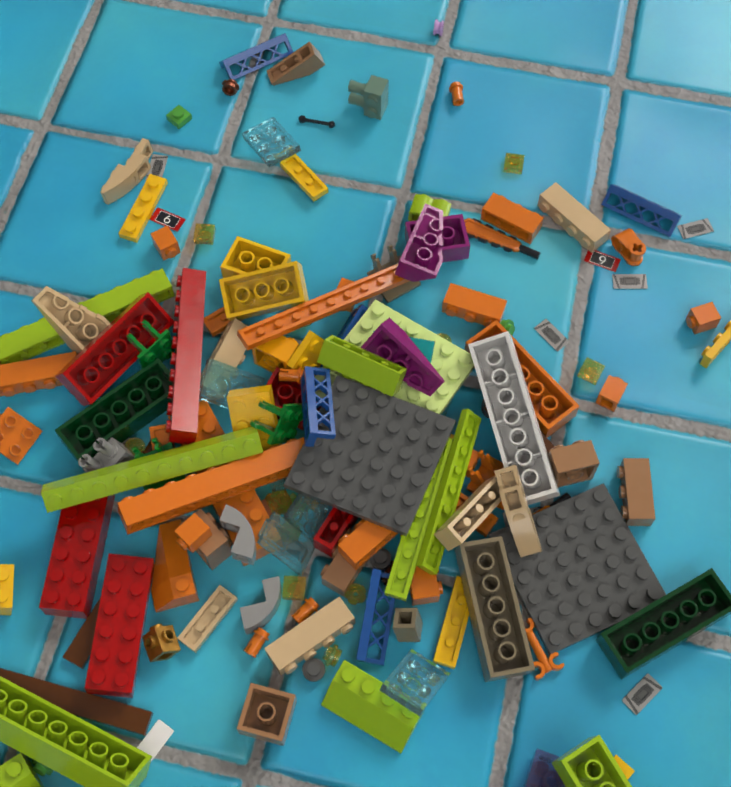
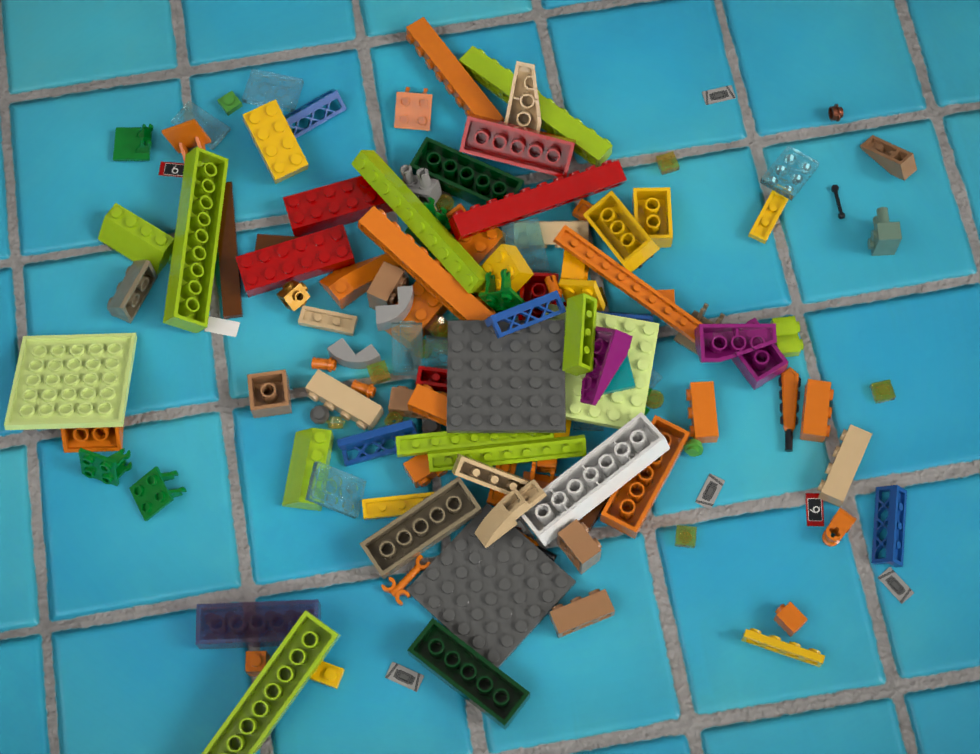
camera: 70 degrees right, 5 degrees up
(126, 177) = (692, 76): tan slope -> none
(143, 208) = (670, 103): yellow plate -> none
(160, 349) = (531, 177): green plate -> none
(165, 243) = (641, 137): orange brick -> none
(166, 218) = (670, 128): sticker -> none
(179, 117) = (780, 87): bright green plate -> none
(192, 533) = (377, 272): orange brick -> none
(251, 53) = (886, 113): fence -> none
(407, 625) = (381, 468): dark tan brick -> none
(456, 89) = (941, 307): orange pin -> none
(611, 392) = (671, 561): orange brick -> none
(629, 281) = (803, 542): sticker -> none

